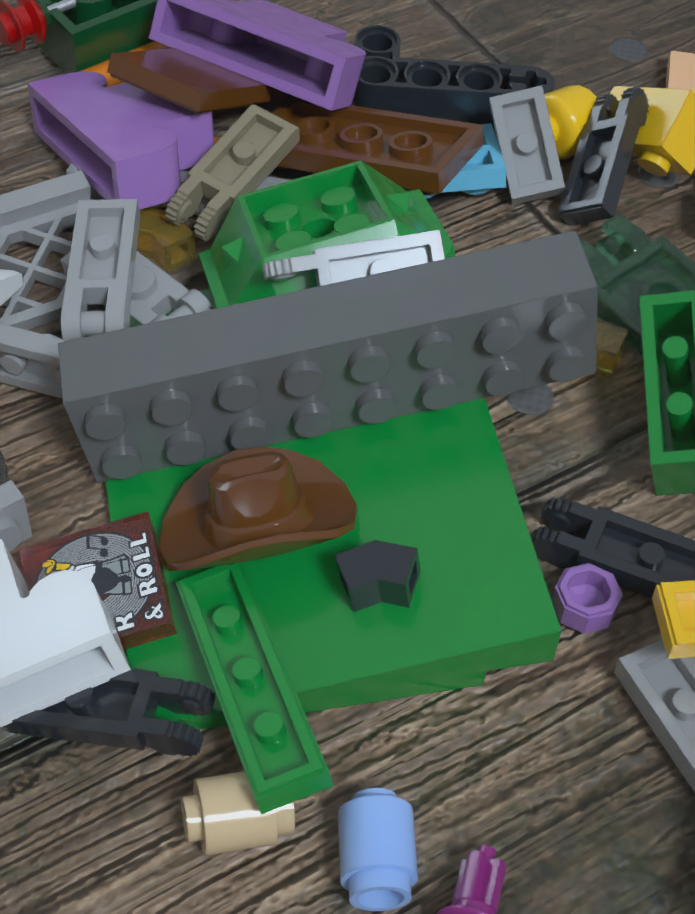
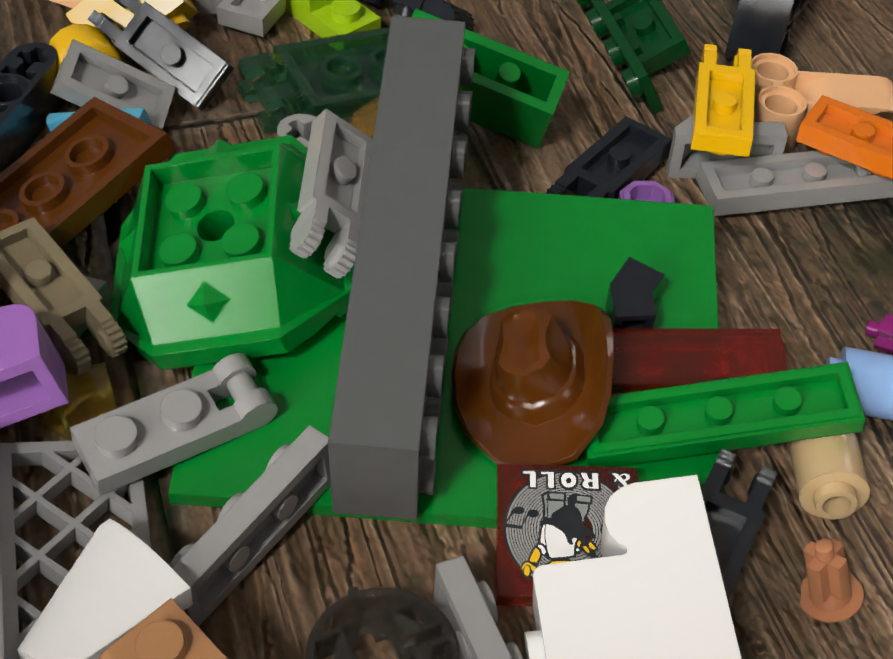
camera: 75 degrees left, 5 degrees down
(90, 833) = (829, 589): none -> nougat piece
(100, 267) = (174, 419): light grey plate -> none
(322, 646) = (688, 356): none -> clear red tile

